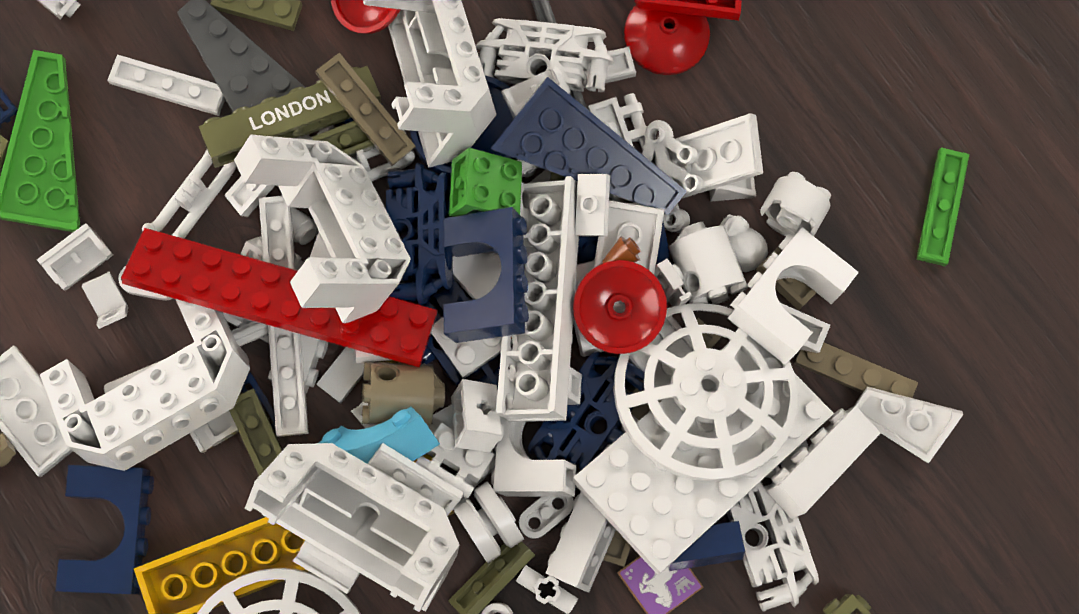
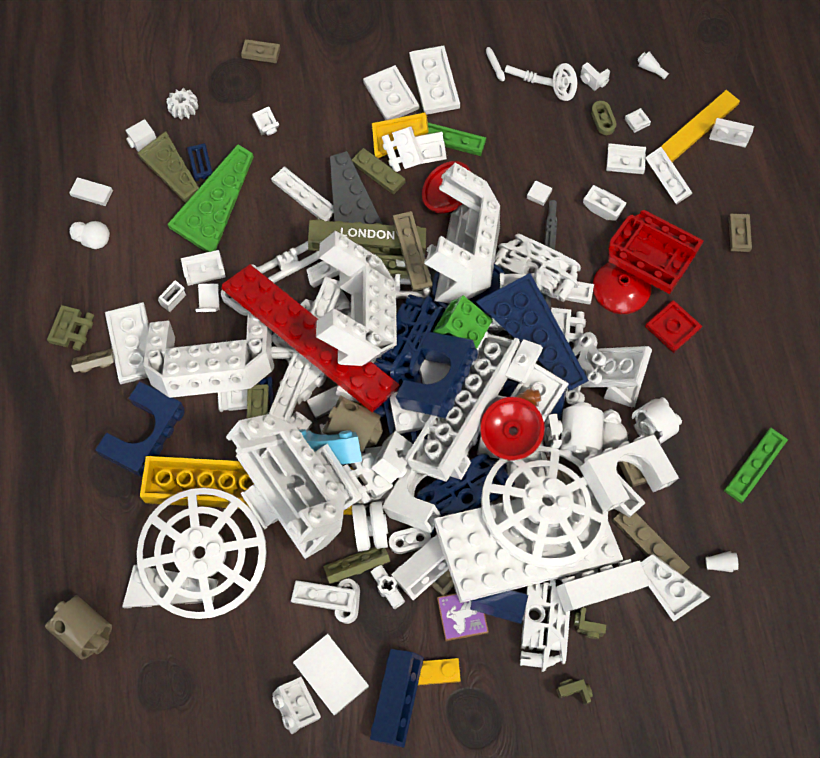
camera: 30 degrees right, 10 degrees down
(45, 316) = (169, 293): none -> white piece
(321, 421) = (300, 421): none -> white tile
(758, 60) = (673, 326): none -> red tile
(833, 523) = (591, 629): none -> olive bracket
(956, 356) = (722, 562): none -> white cone

